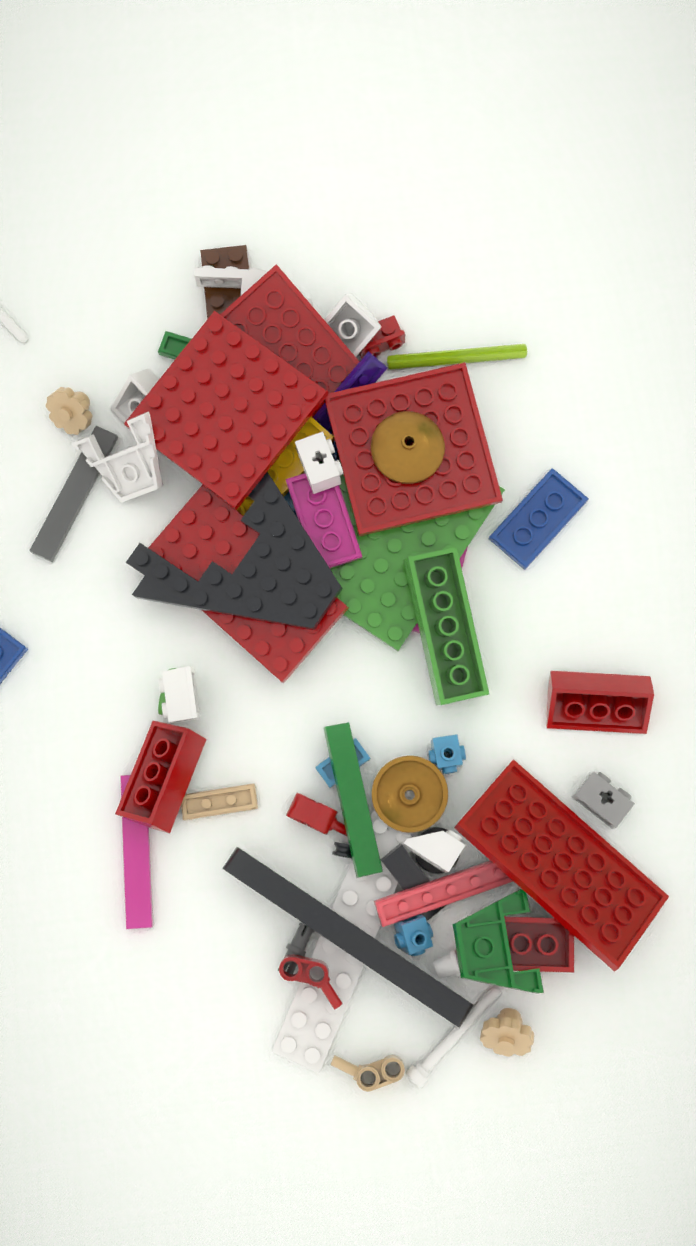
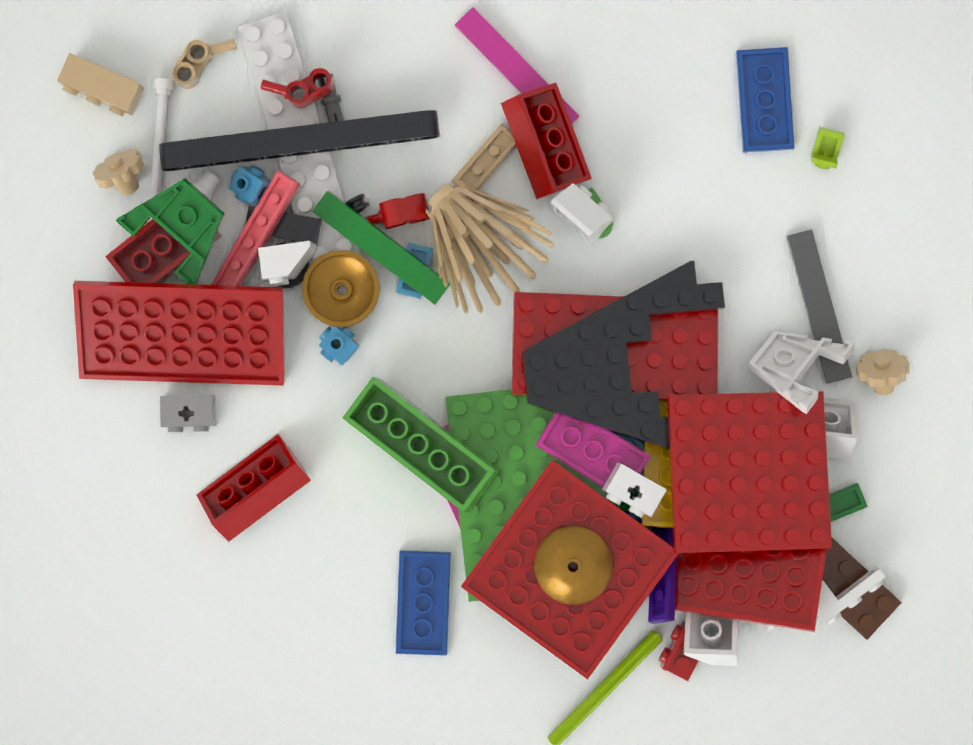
camera: 135 degrees right, 10 degrees up
(272, 768) = (460, 219): none -> tan plant
(467, 1120) = (100, 85): none -> tan brick

